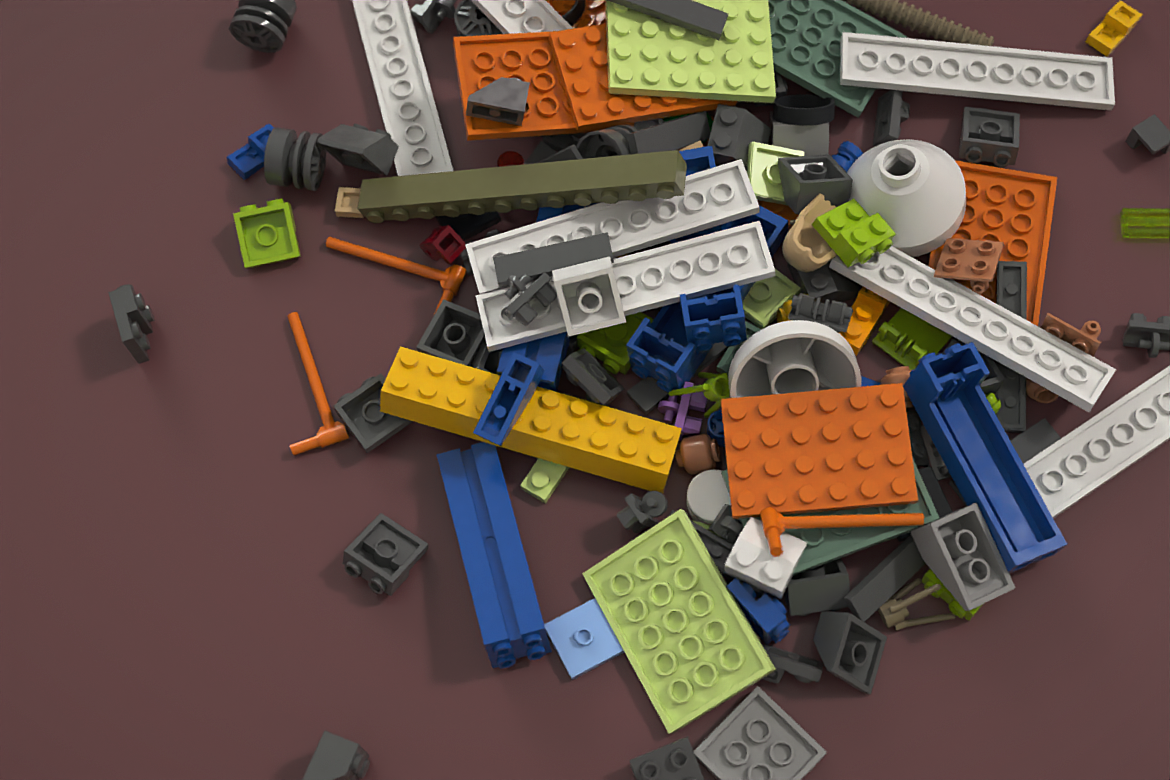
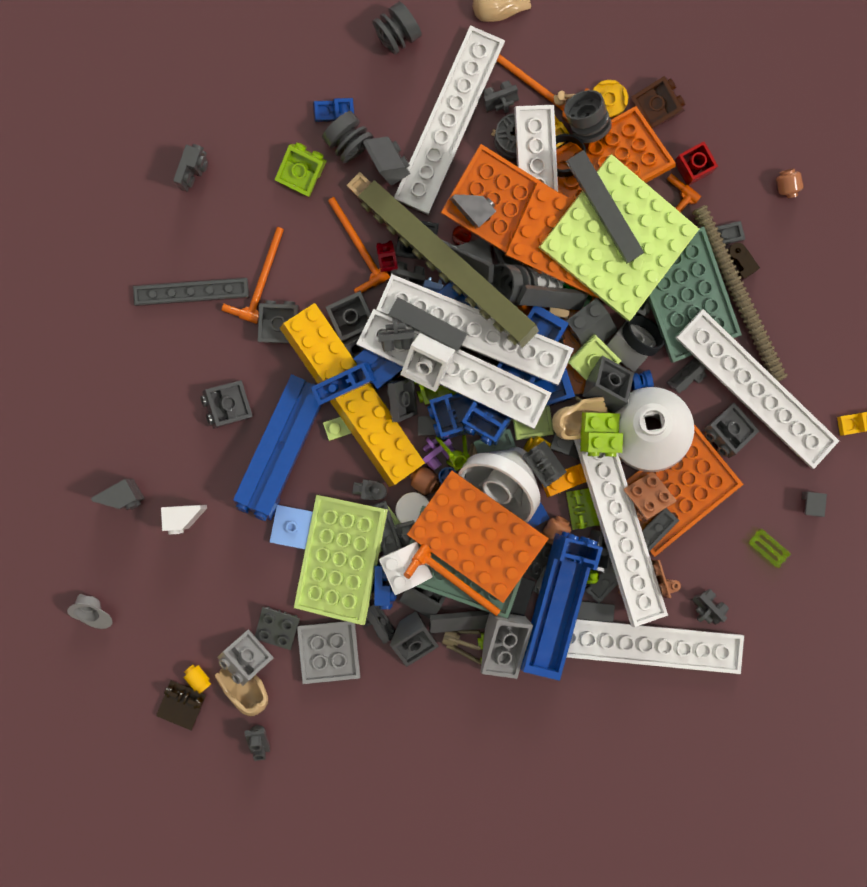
camera: 30 degrees right, 20 degrees up
(238, 464) = (191, 291): none -> dark grey tile
(434, 728) = (178, 518): none -> white slope

